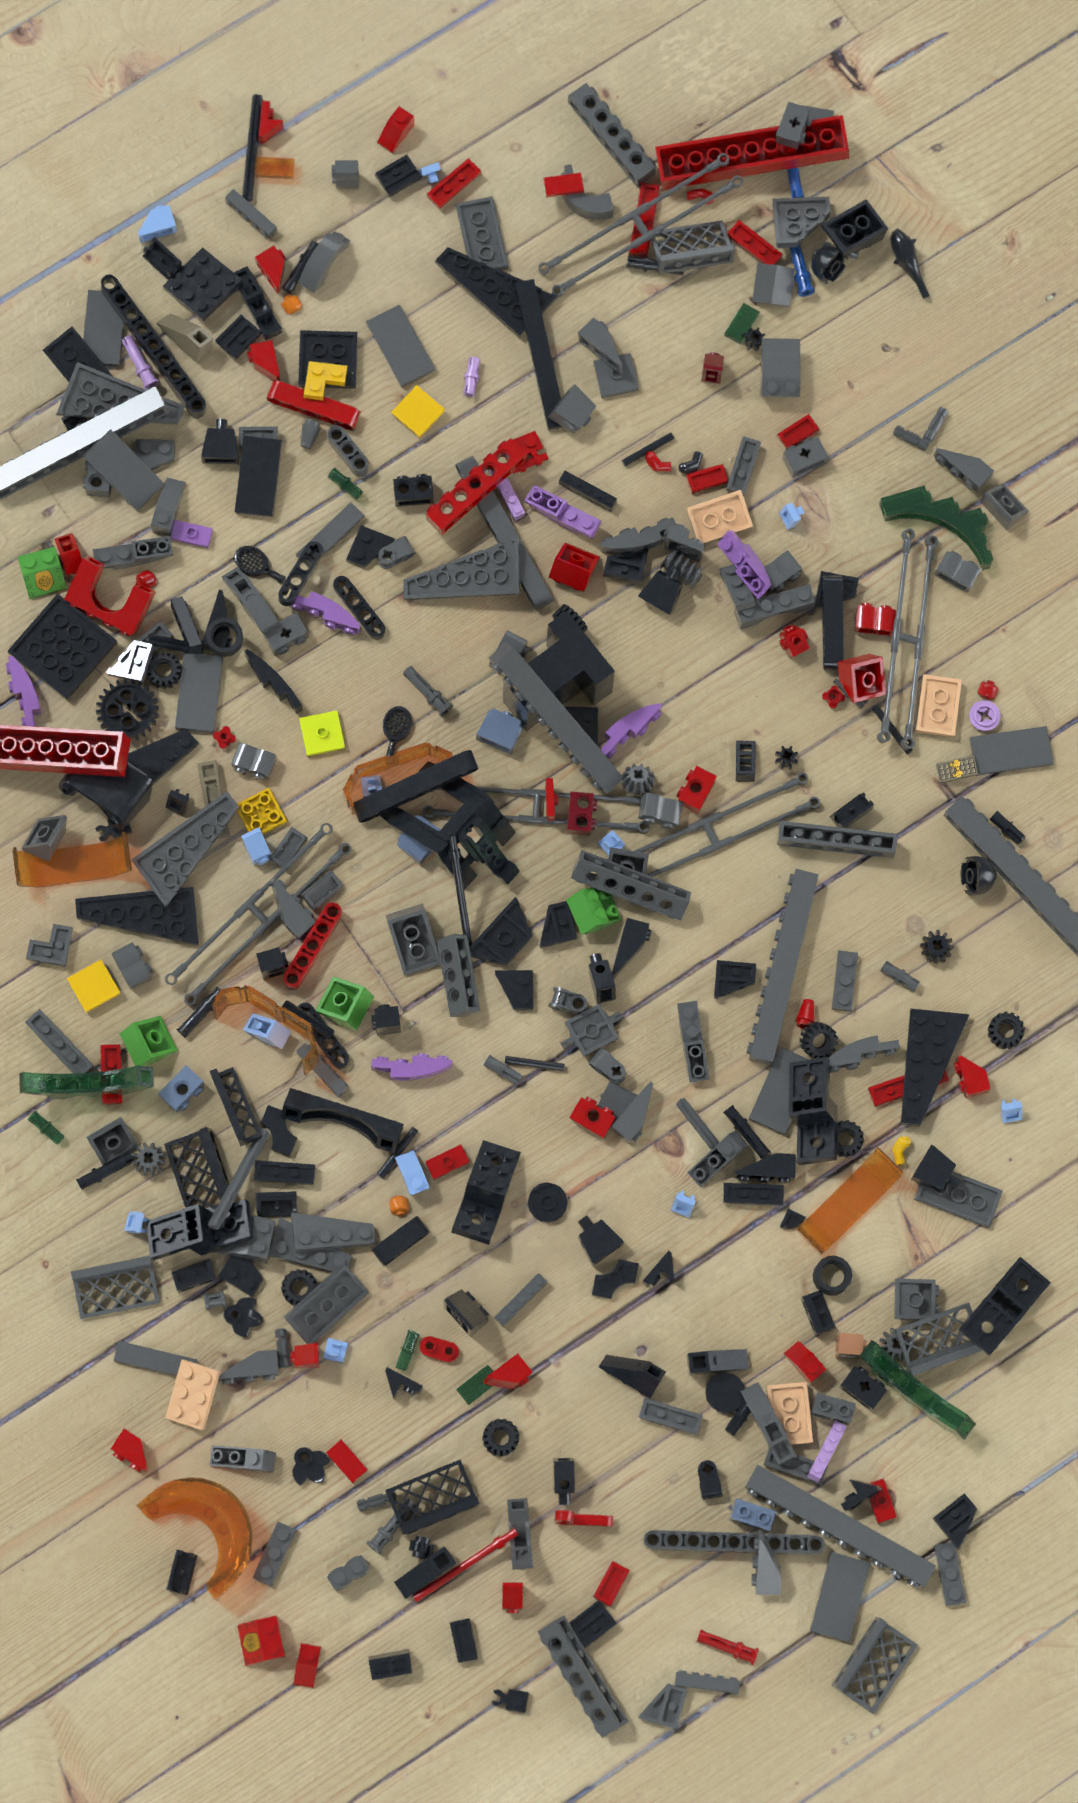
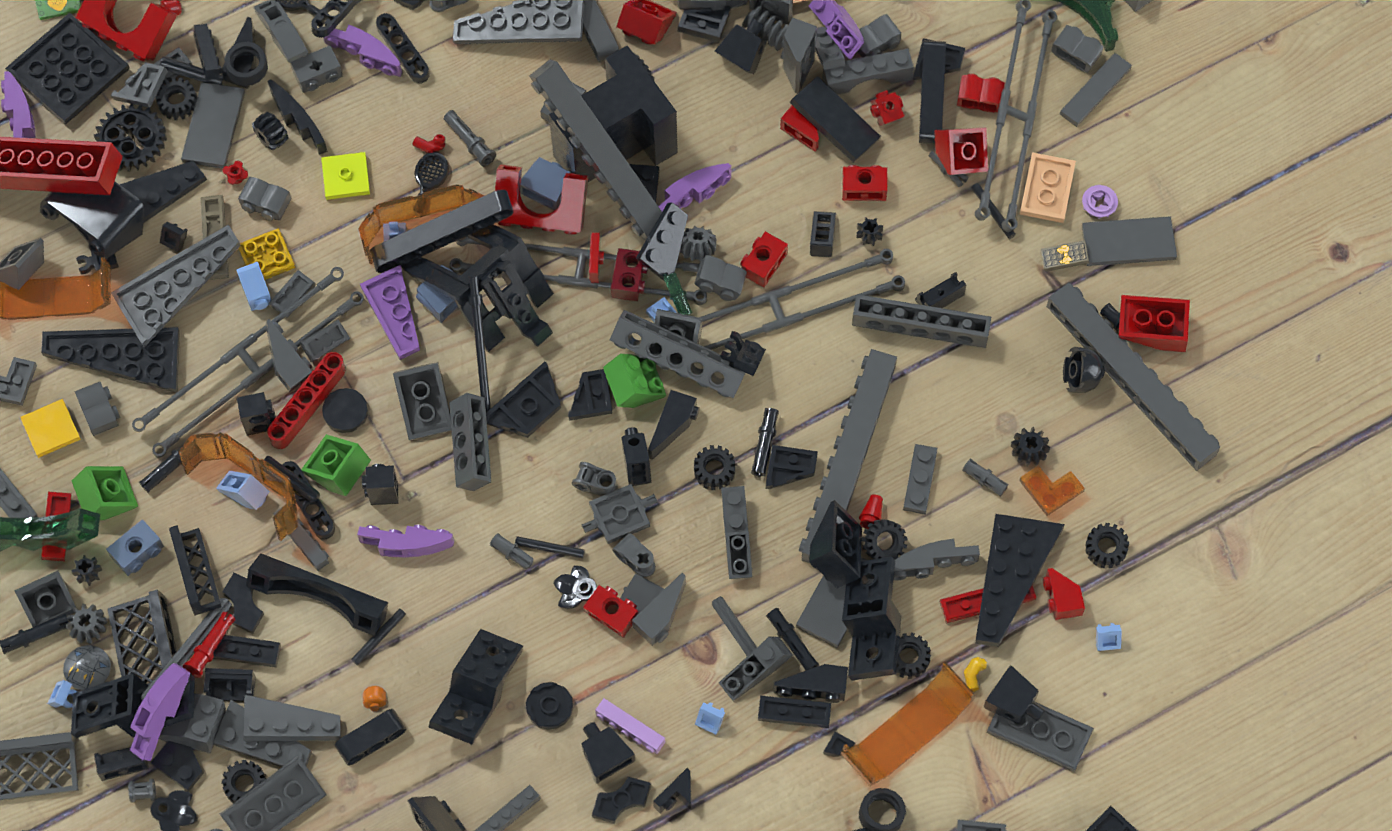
camera: 10 degrees right, 10 degrees down
(147, 1114) = (81, 567): none -> black gear
(153, 1197) = (87, 667): none -> dark grey dish
(223, 1232) = (158, 704): none -> medium lavender slope
(251, 697) = (270, 131): none -> black gear
(254, 1180) = (204, 652): none -> red pin
(346, 952) = (345, 410): none -> black tile
(375, 853) = (392, 308): none -> medium lavender wing
(395, 700) = (434, 145): none -> red arm
(412, 1172) = (392, 660): light blue slope -> none
(447, 1162) = (436, 651): red plate -> none
(517, 987) = (538, 462): black wing -> none
(520, 762) = (566, 217): none -> arch
(557, 1096) = (572, 585): none -> black plate
(610, 784) = (664, 242): none -> wing
(616, 1216) = (630, 726): none -> lavender piece
(625, 829) = (677, 294): none -> clear green axle
(673, 994) = (714, 480): none -> black tyre
(687, 880) = (743, 354): none -> black plate
(711, 948) = (766, 434): none -> black pin
(712, 594) = (798, 51): none -> dark grey slope
(720, 660) = (800, 128): none -> red slope
(749, 655) = (835, 119): none -> black tile
(769, 718) = (856, 191): none -> red brick
(780, 1051) = (837, 546): none -> black slope
(837, 693) = (931, 166): red plate -> none
(956, 988) = (1051, 495): none -> clear orange plate
(975, 608) = (1095, 89): none -> dark grey tile
(987, 690) = (1105, 175): red piece -> none
(1037, 827) = (1155, 322): none -> red slope

